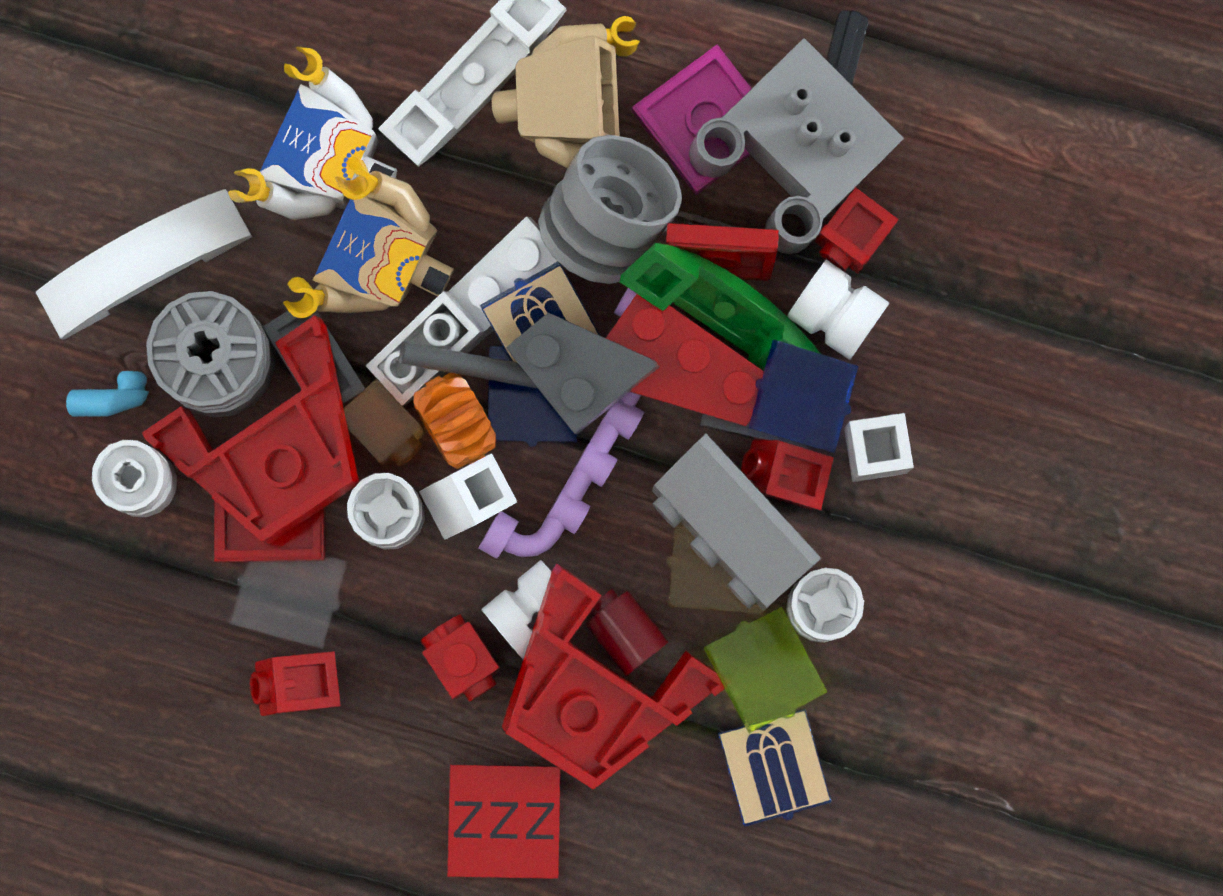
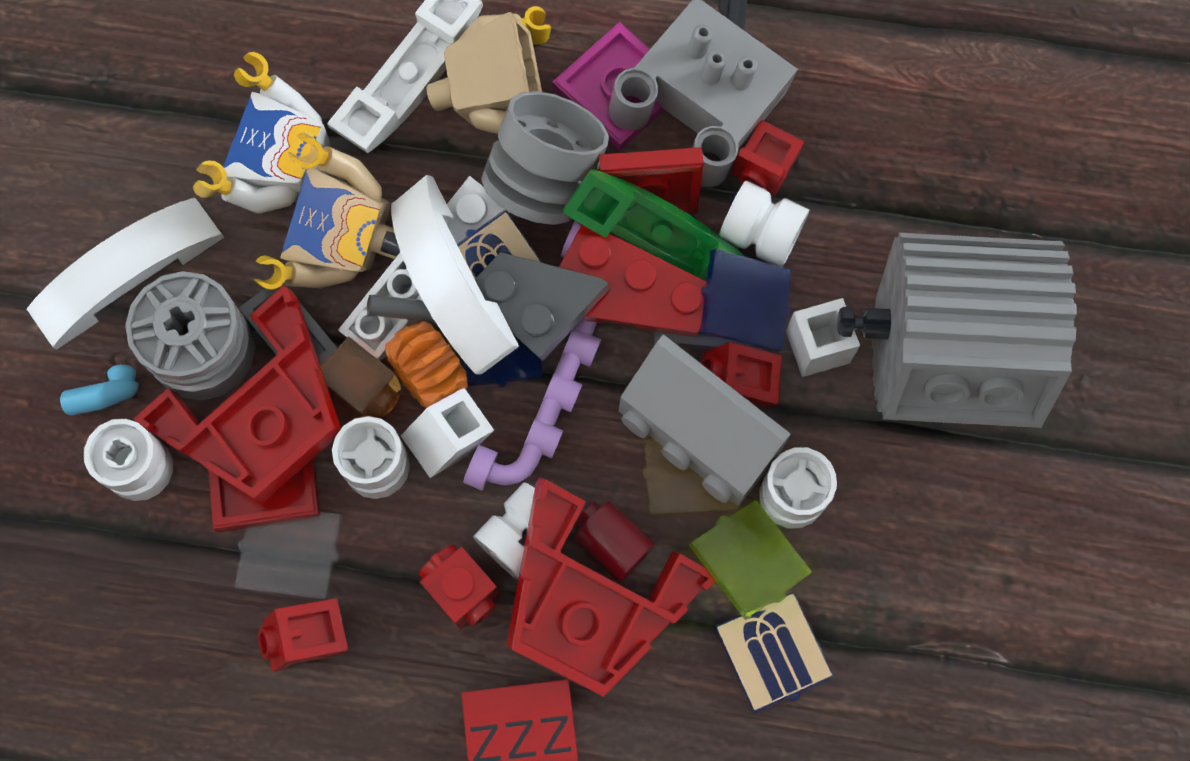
camera: 10 degrees left, 10 degrees down
(483, 331) = (445, 281): none -> white slope
(1027, 470) = (970, 329): none -> light grey piece

